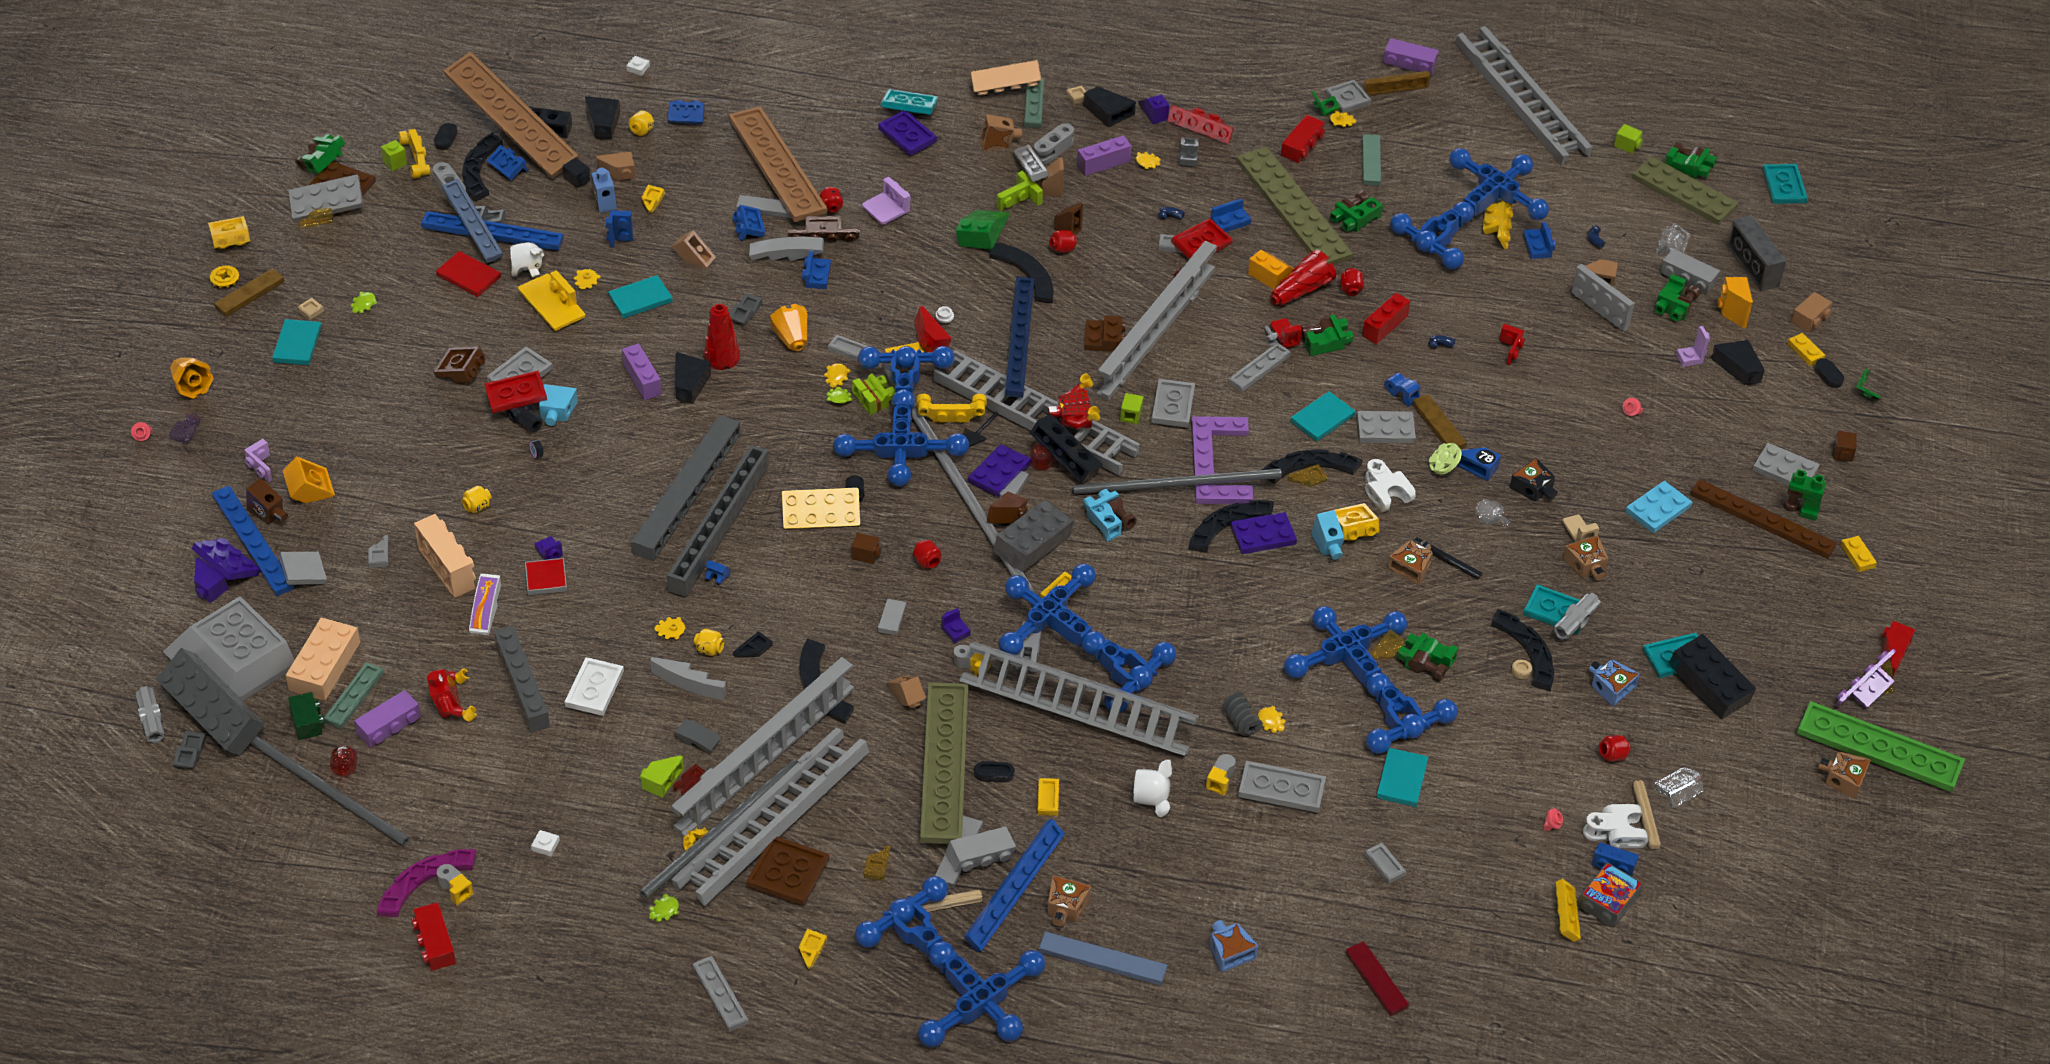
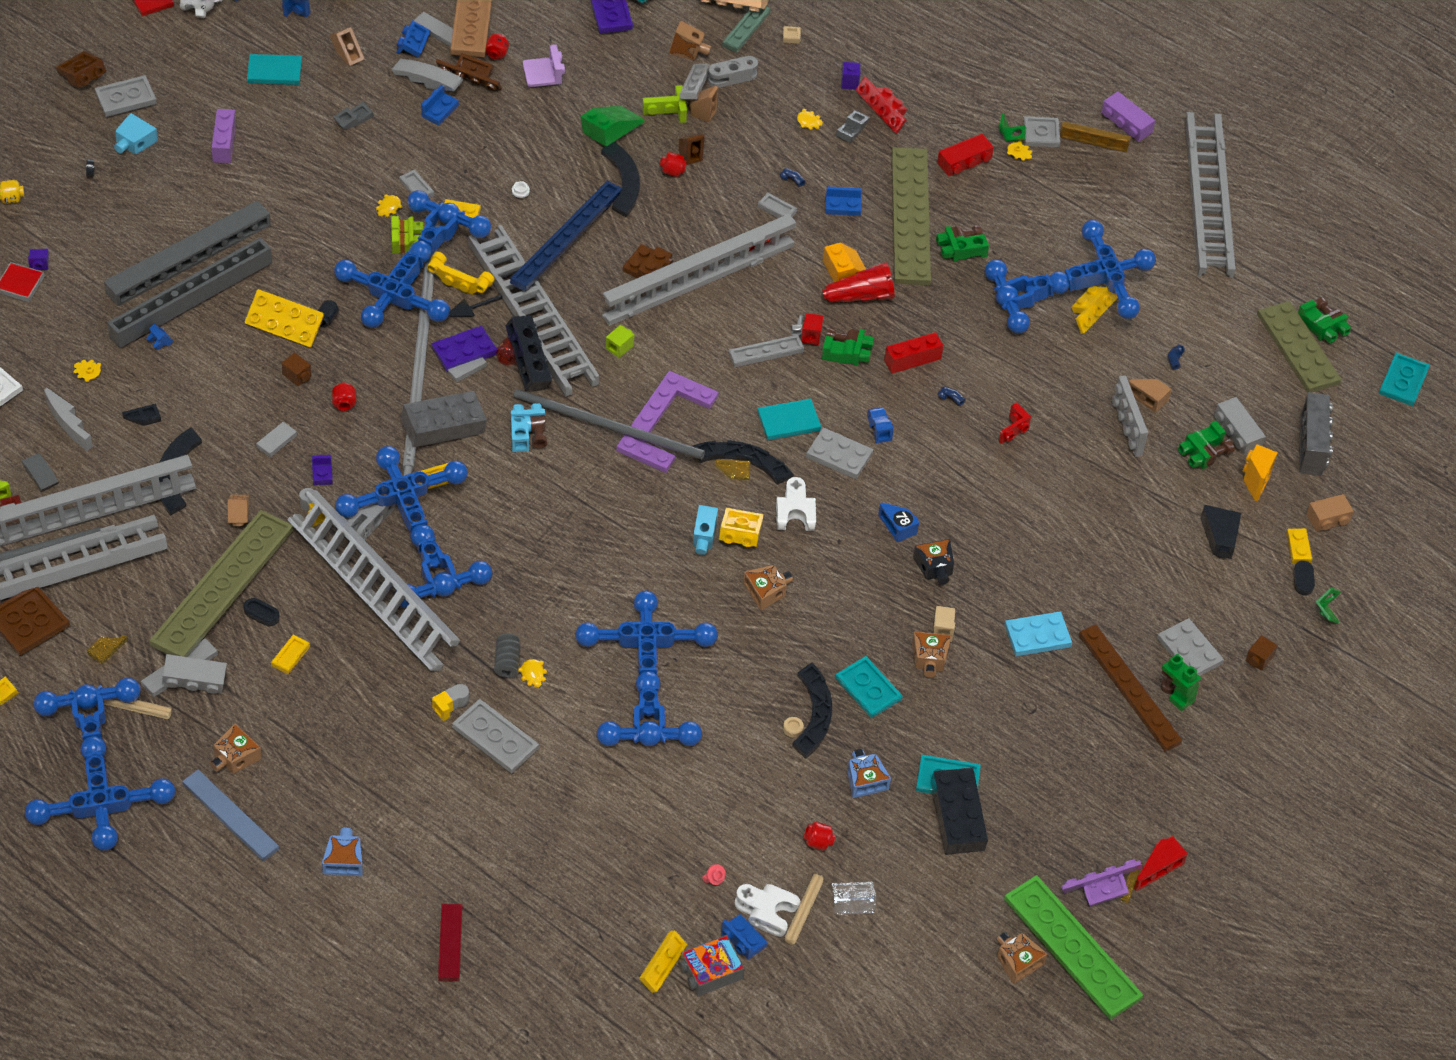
camera: 25 degrees right, 5 degrees up
(515, 391) = (103, 111): red tile -> none
(525, 418) = (99, 129): black piece -> none
(553, 300) = (197, 44): yellow bracket -> none
(586, 278) = (241, 35): yellow piece -> none
(690, 376) = (261, 157): black slope -> none
(709, 642) = (107, 395): yellow head -> none
(721, 339) = (304, 135): red cone -> none
(790, 326) = (377, 146): light orange cone -> none
(838, 395) = (376, 225): lime piece -> none
(929, 331) = (493, 202): red slope -> none
(1007, 509) = (439, 384): reddish brown slope -> none
(1014, 885) = (201, 717): blue plate -> none
(1075, 407) = (561, 318): red torso -> none
(1104, 155) = (769, 100): medium lavender brick -> none
(1108, 106) = (809, 56): black slope -> none
(1153, 787) = (377, 686): white piece -> none
(1173, 403) = (661, 351): light grey plate -> none
(1191, 239) = (806, 211): red tile -> none
(1223, 517) = (630, 474): black tile -> none
(1263, 533) = (654, 503): dark purple plate -> none
(1352, 281) = (908, 306): red head -> none
(1371, 160) = (1017, 200): sand green tile -> none
(1385, 863) = (535, 844): light grey tile -> none
(1387, 645) = (684, 652): clear yellow tile -> none
(1402, 777) = (609, 775): teal tile -> none
(1427, 655) = (716, 671): green hips -> none
(1438, 421) = (891, 470): pearl gold tile -> none
(1445, 457) = (868, 504): yellowish green wheel -> none
(1452, 560) = (804, 597): black bar -> none
(1490, 512) = (874, 571): clear piece -> none
(1539, 242) = (1116, 340): blue bracket -> none
(1577, 616) = (875, 700): light grey piece -> none
(1628, 139) = (1279, 275): lime brick -> none
(1632, 407) = (1084, 530): coral plate -> none
(1673, 237) = (1249, 390): clear bracket -> none
(1695, 354) = (1181, 505): lavender bracket -> none
(1858, 553) = (1196, 759): yellow plate -> none

